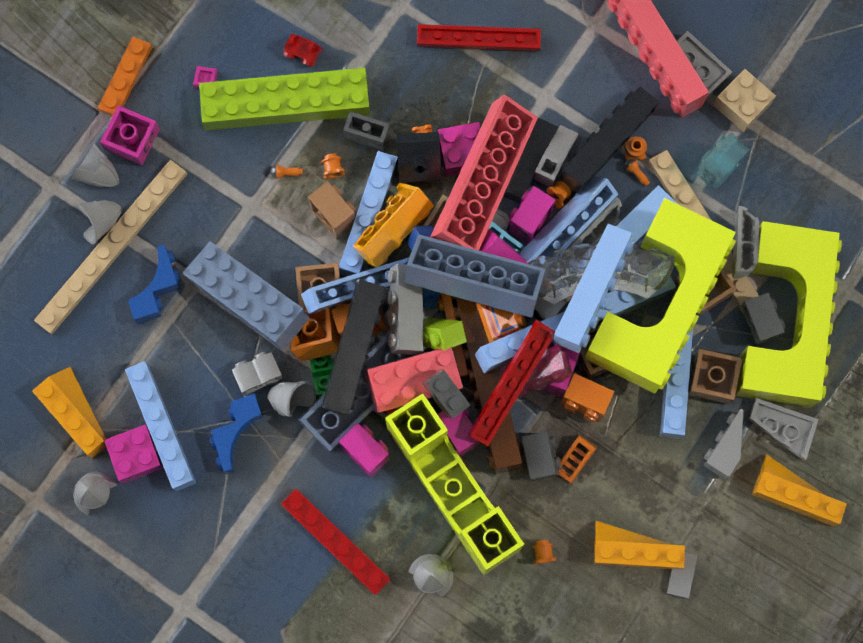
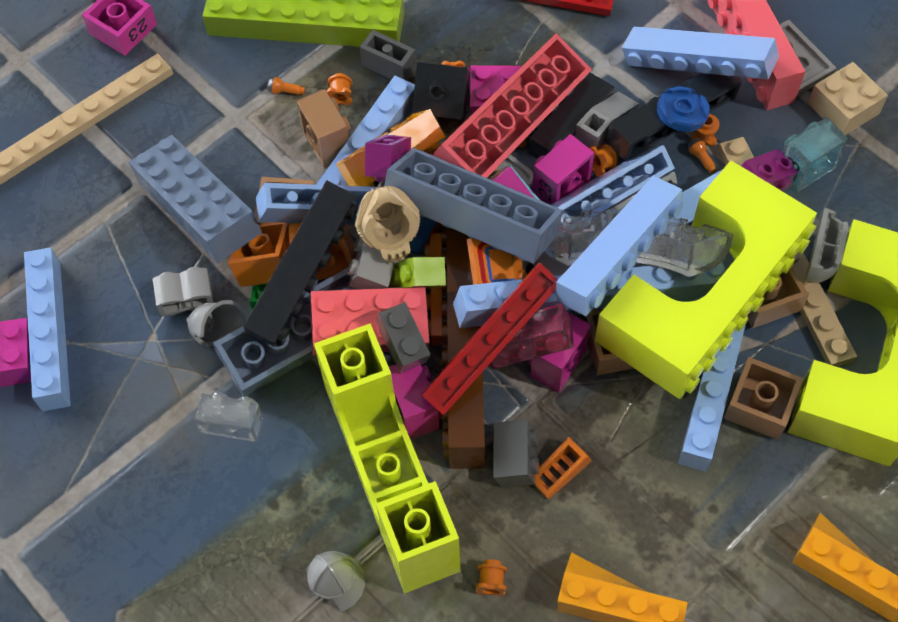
camera: 15 degrees right, 15 degrees down
(96, 170) = (73, 51): light grey helmet -> none
(102, 217) = (57, 92): light grey helmet -> none
(146, 305) = (79, 192): blue arch -> none
(244, 412) = (120, 357): blue arch -> none
(322, 469) = (228, 416): none -> clear brick
(335, 542) = (222, 512): red plate -> none
(364, 449) = (288, 399): dark pink brick -> none
(399, 243) = (383, 153): none -> magenta brick
(414, 304) = (388, 222): none -> tan helmet
(587, 398) = (589, 391): orange brick -> none
(617, 143) = (683, 109): none -> blue tile
(622, 86) = (701, 52): none -> light blue brick
(690, 187) = (772, 168): none -> magenta brick
(727, 451) = (766, 496): light grey slope -> none
(763, 318) = (838, 337): dark grey brick -> none
(785, 425) = (850, 480): light grey wing -> none

